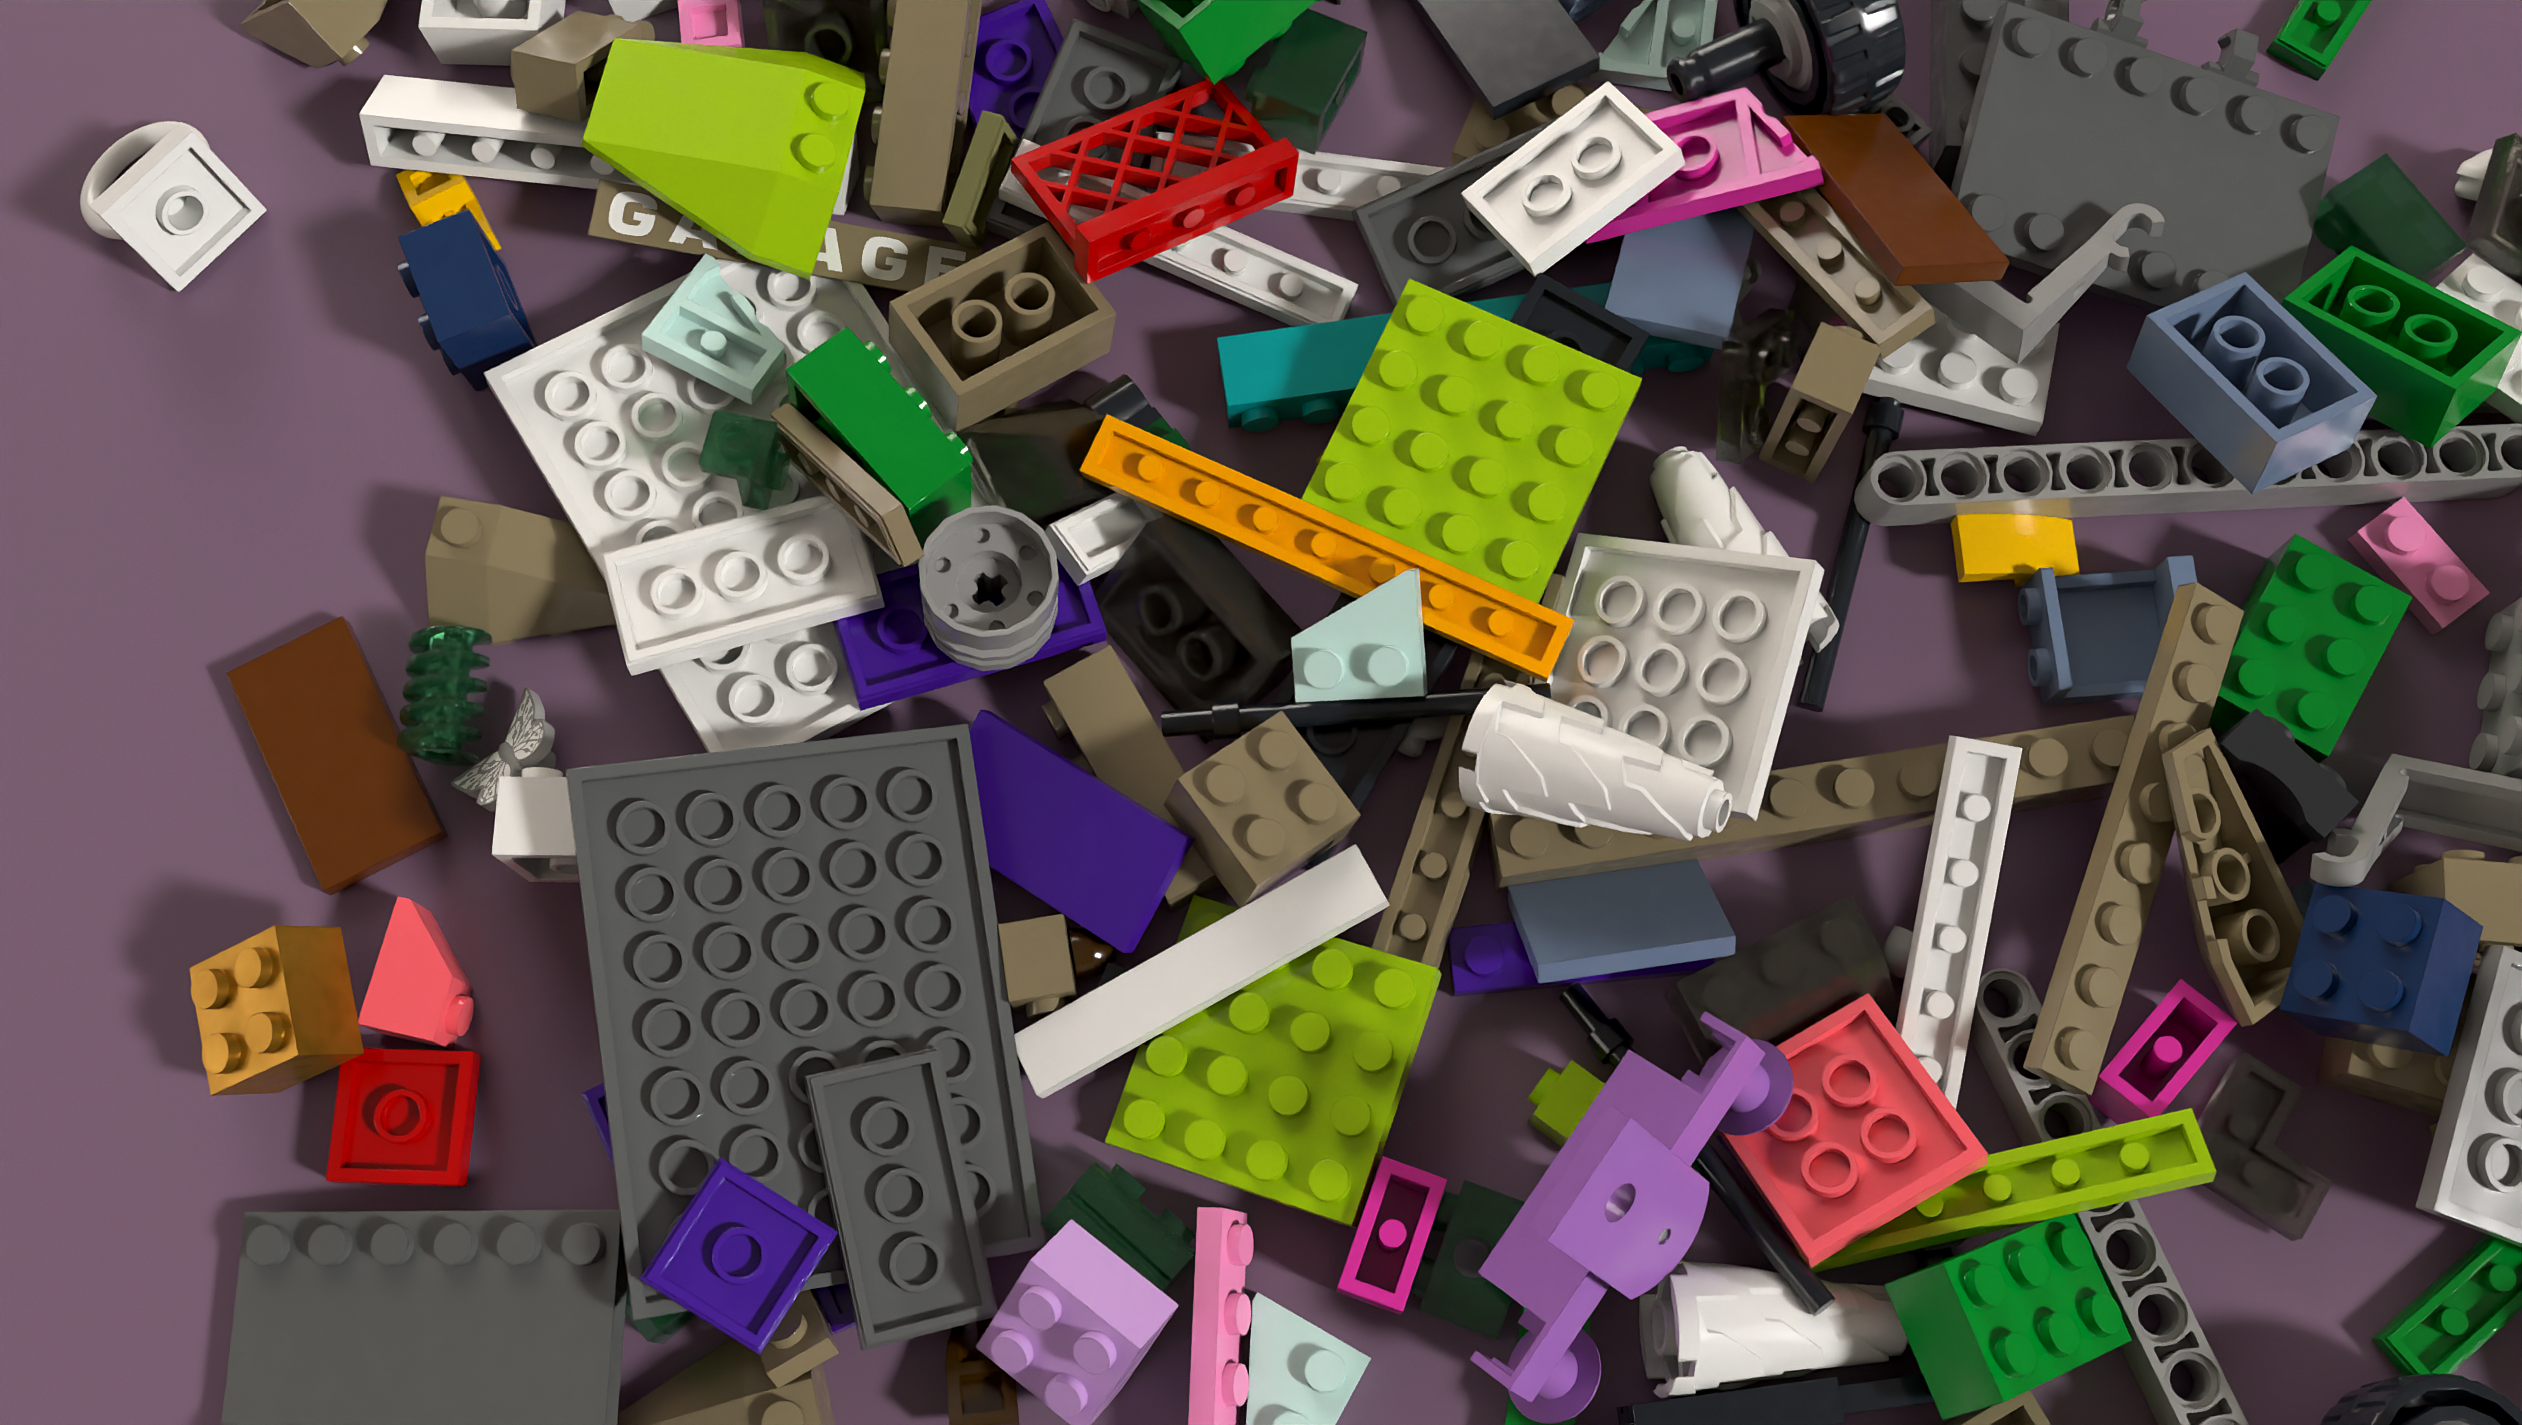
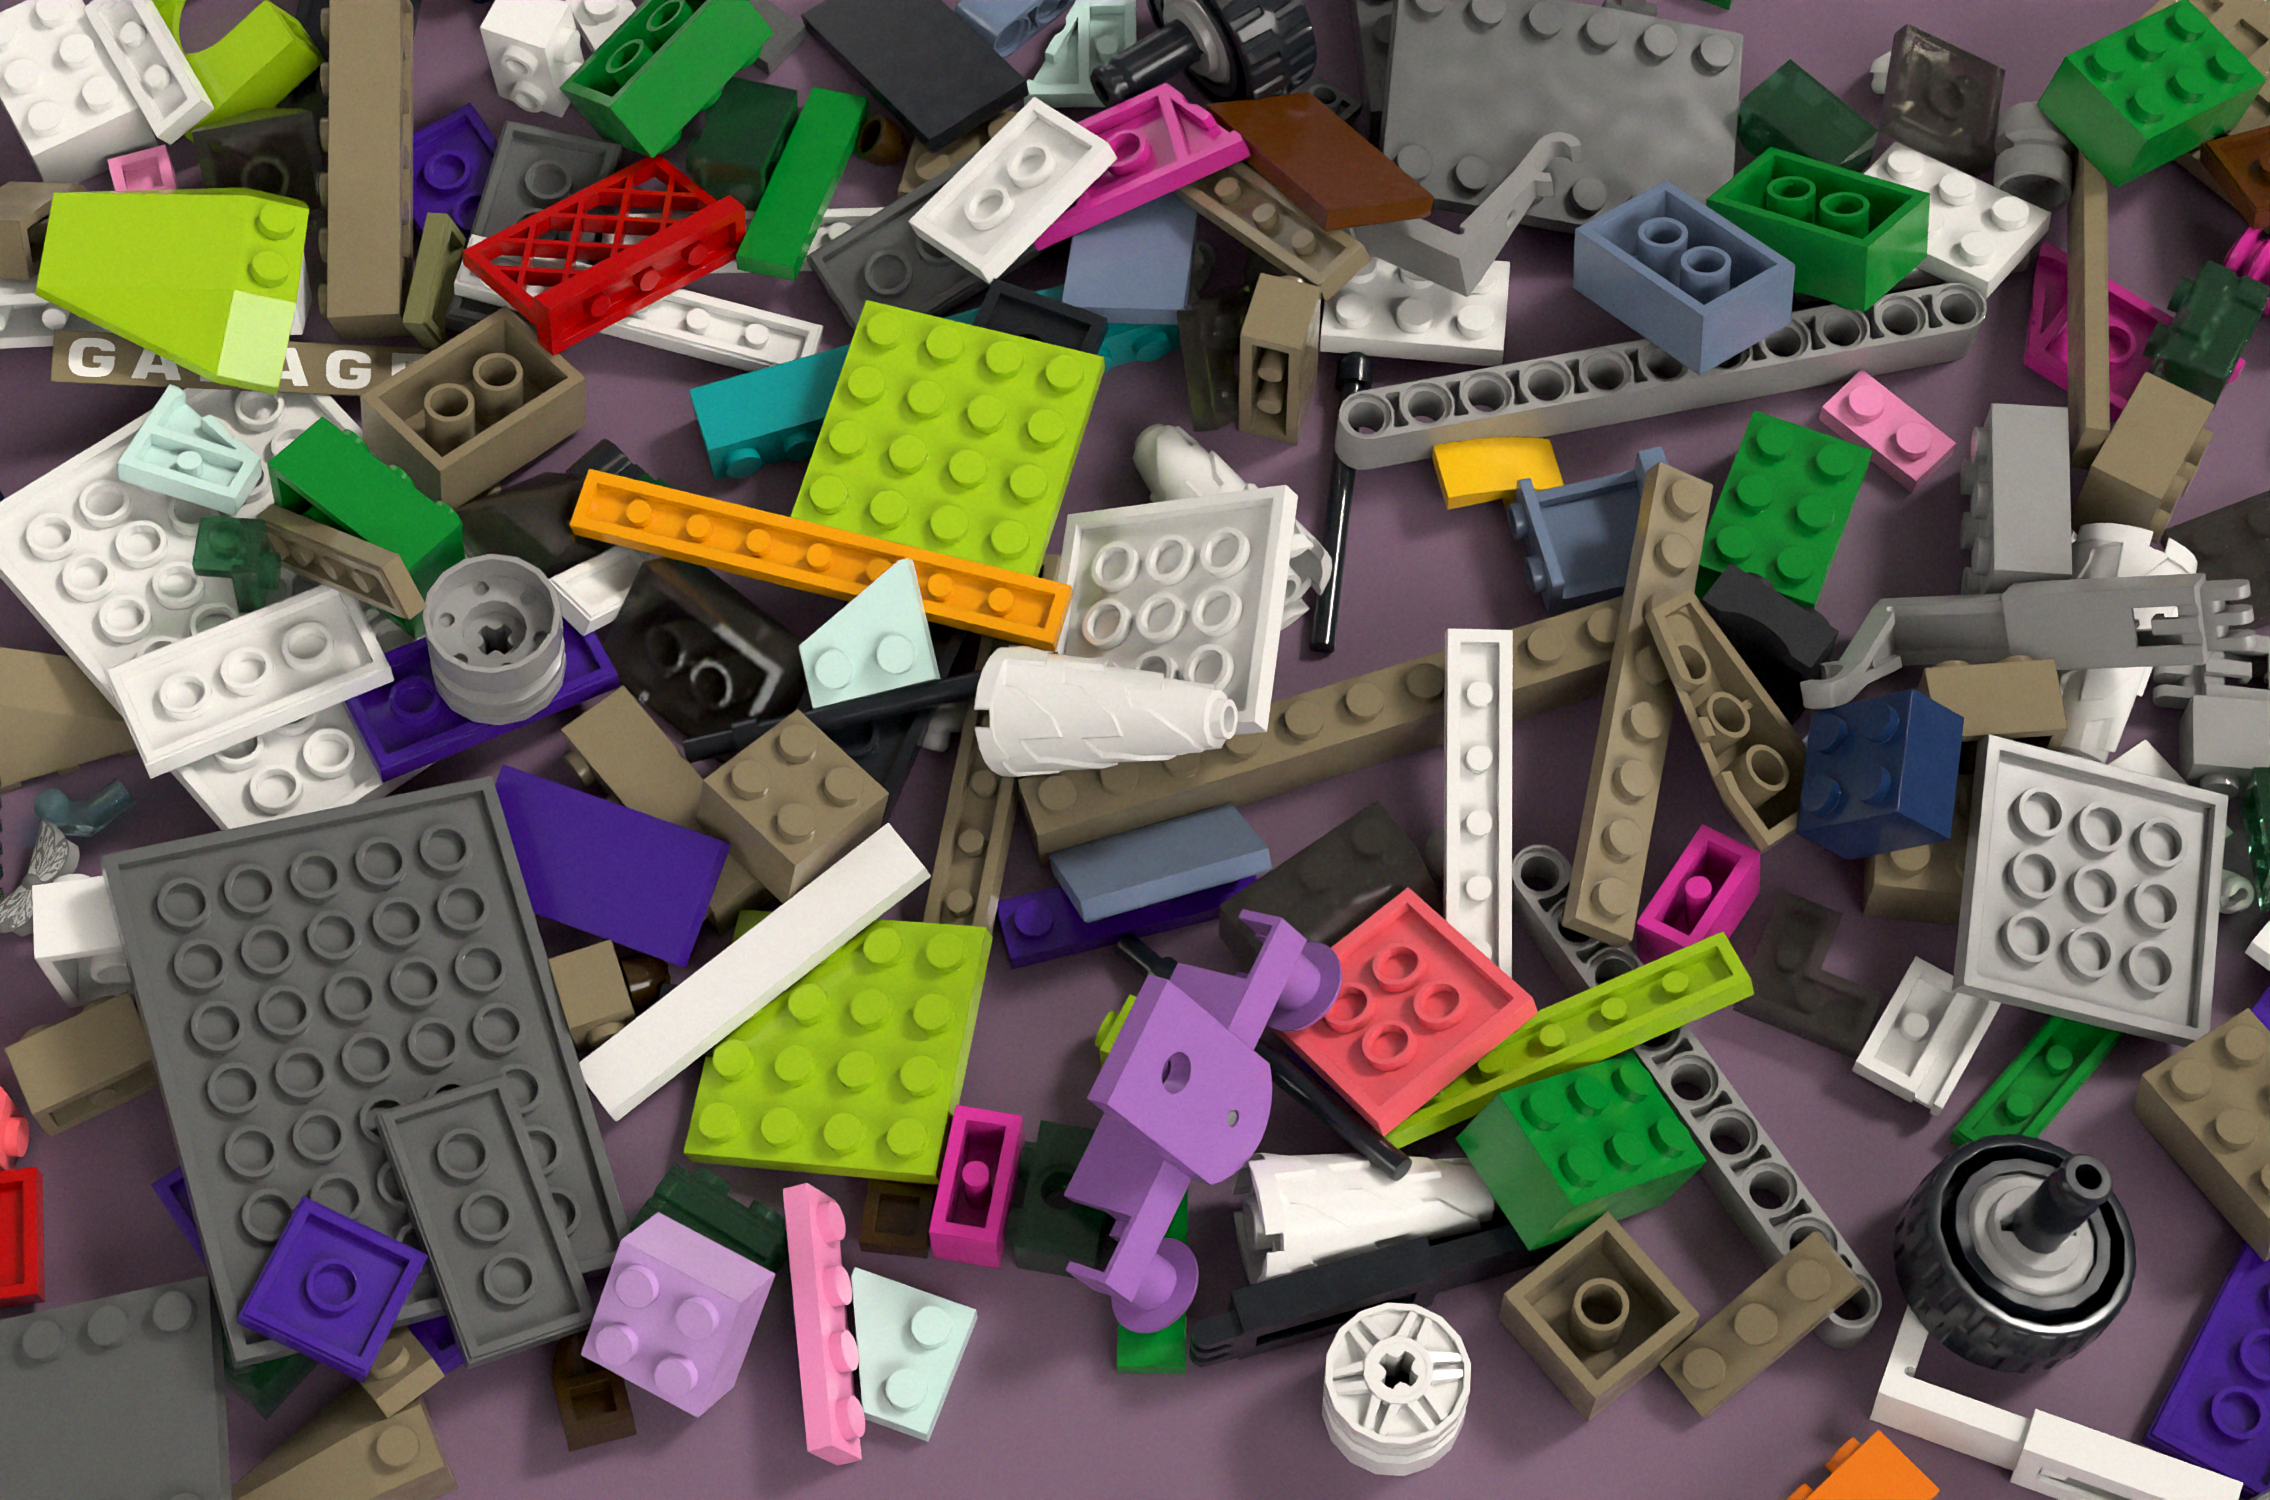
camera: 10 degrees left, 10 degrees down
(526, 951) = (84, 1063): none -> dark tan brick
(567, 687) = (80, 816): none -> clear light blue arm
(1306, 1248) = (897, 1218): none -> dark brown plate
(1359, 131) = (802, 184): none -> green tile
(1441, 95) = (880, 141): none -> dark brown hinge
(2367, 1233) = (1925, 1037): none -> white plate

